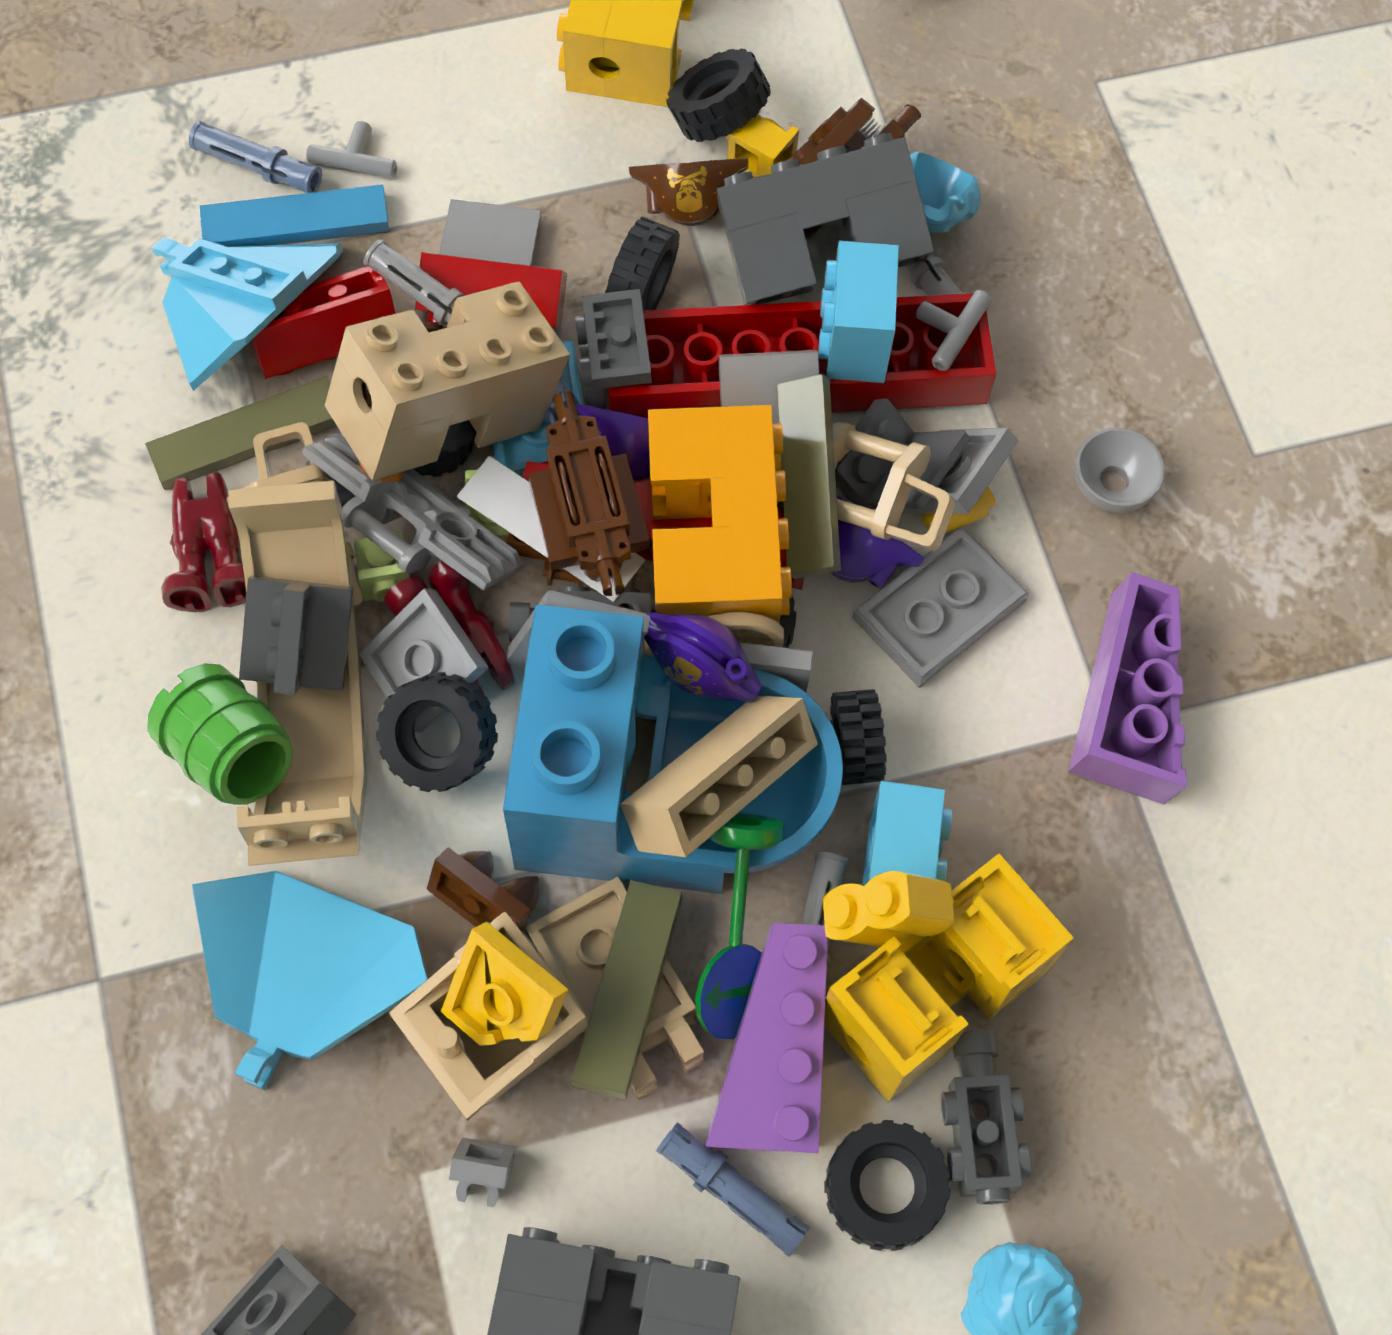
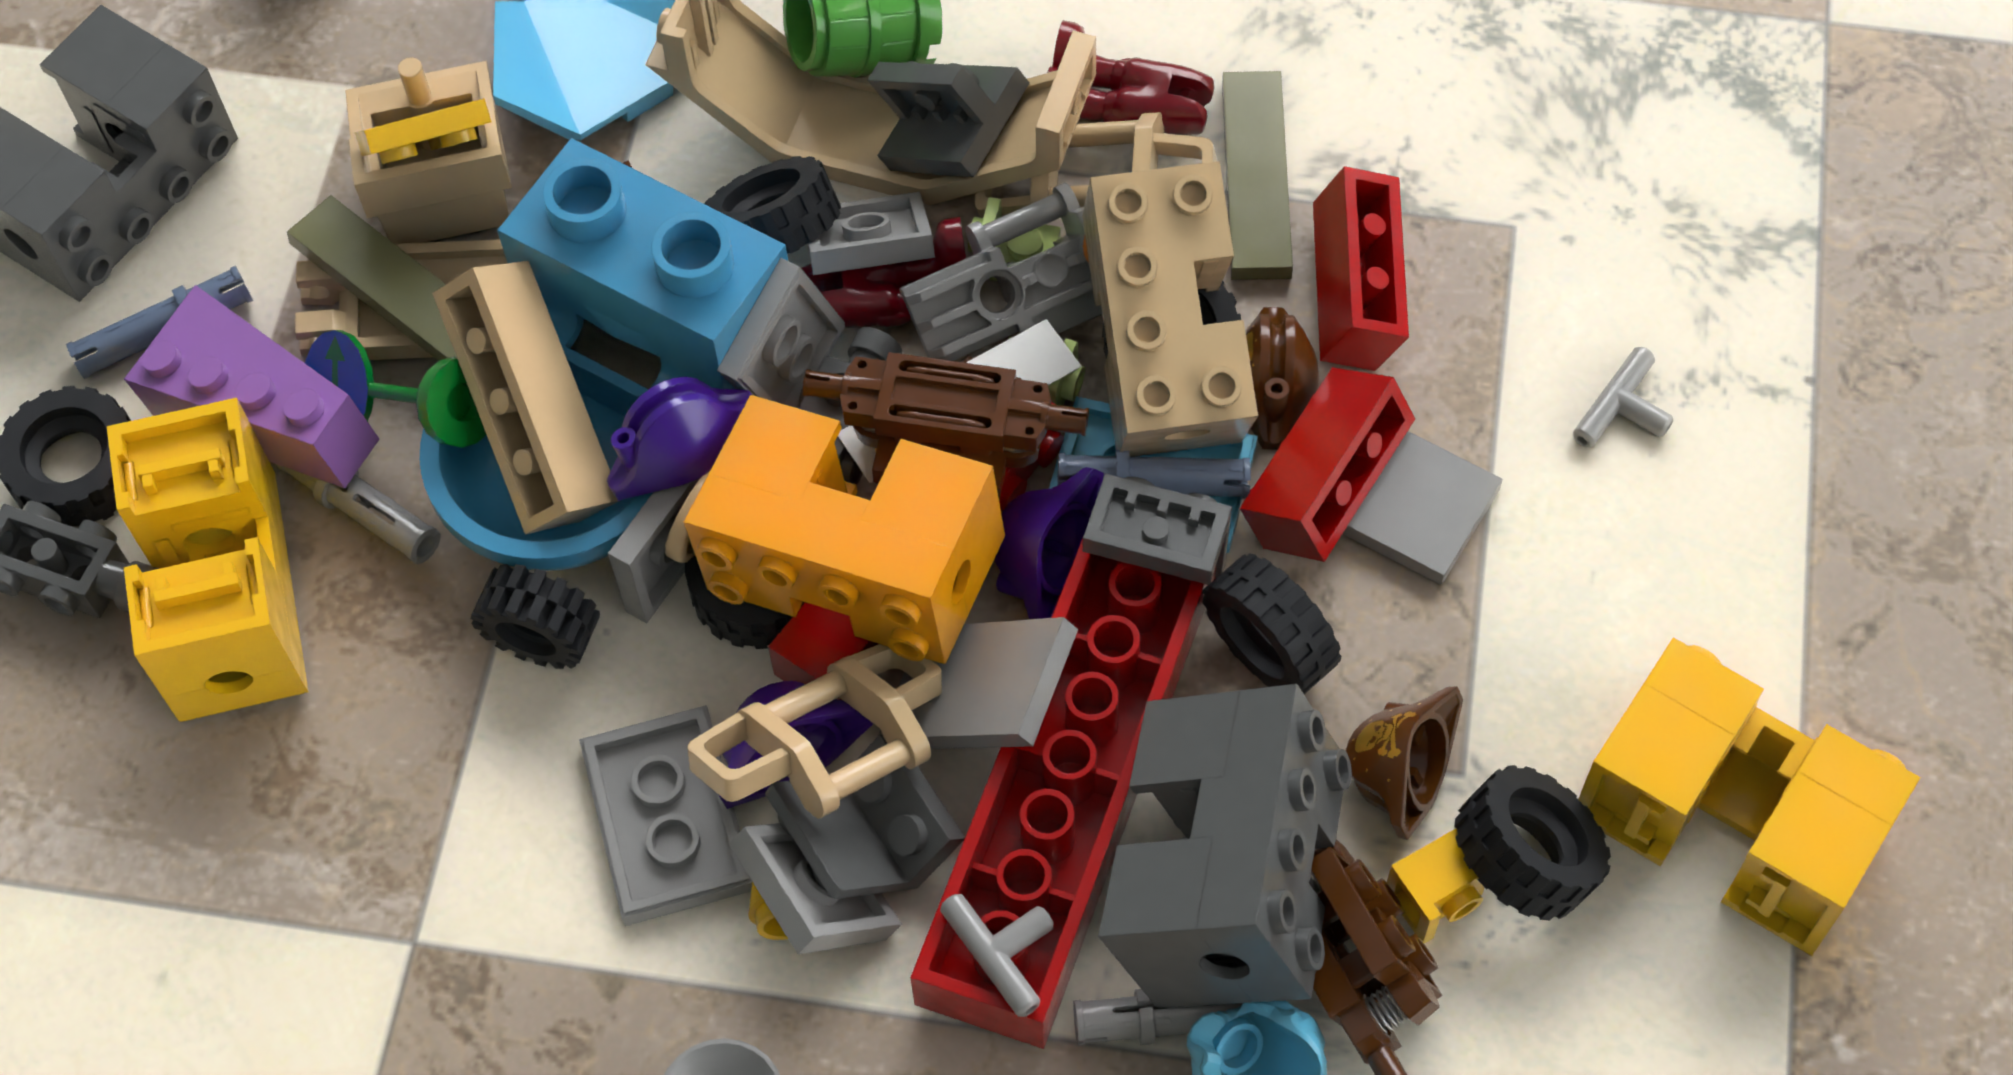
camera: 120 degrees right, 5 degrees down
(231, 293) = (1445, 205): medium azure panel -> none
(270, 163) = (1634, 302): sand blue pin -> none
(296, 217) = (1545, 310): dark azure tile -> none
(412, 280) = (1311, 383): light grey pin -> none
(483, 1165) = (316, 121): light grey tile -> none
(809, 476) = (861, 663): olive tile -> none
(859, 311) = (1043, 797): medium azure brick -> none
(888, 907) = (280, 487): yellow brick -> none
(907, 831) = (375, 598): medium azure brick -> none
(1132, 705) = (399, 946): medium lavender wedge -> none

